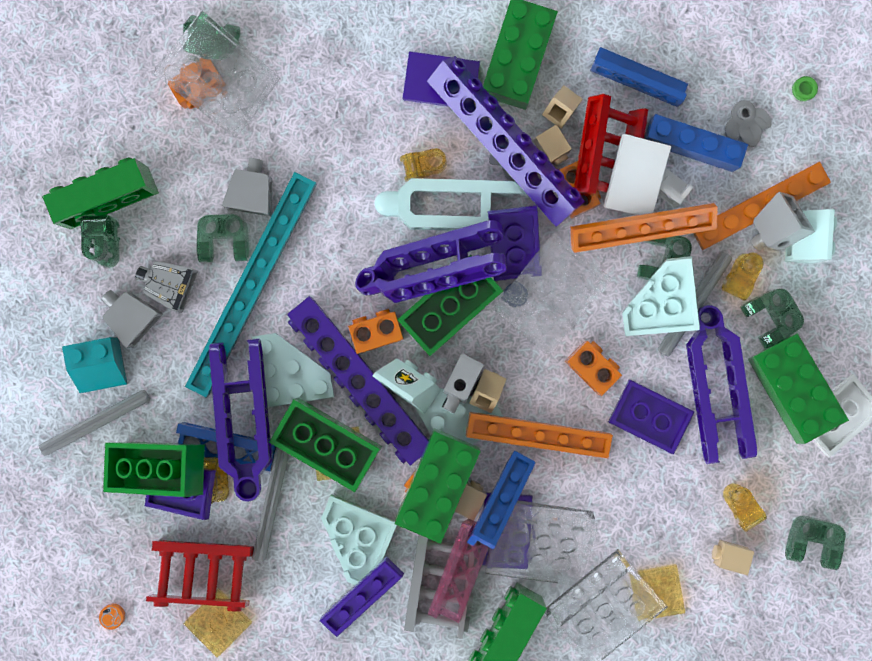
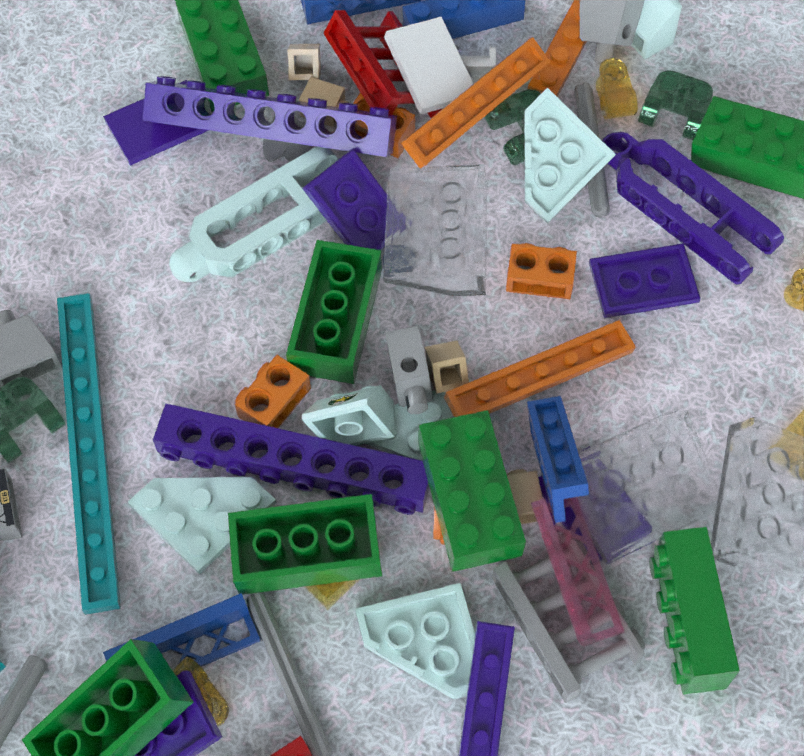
camera: 40 degrees left, 25 degrees down
(245, 476) = (238, 646): dark purple piece -> none
(421, 163) = (193, 199): clear yellow piece -> none
(460, 272) = (309, 234): dark purple piece -> none

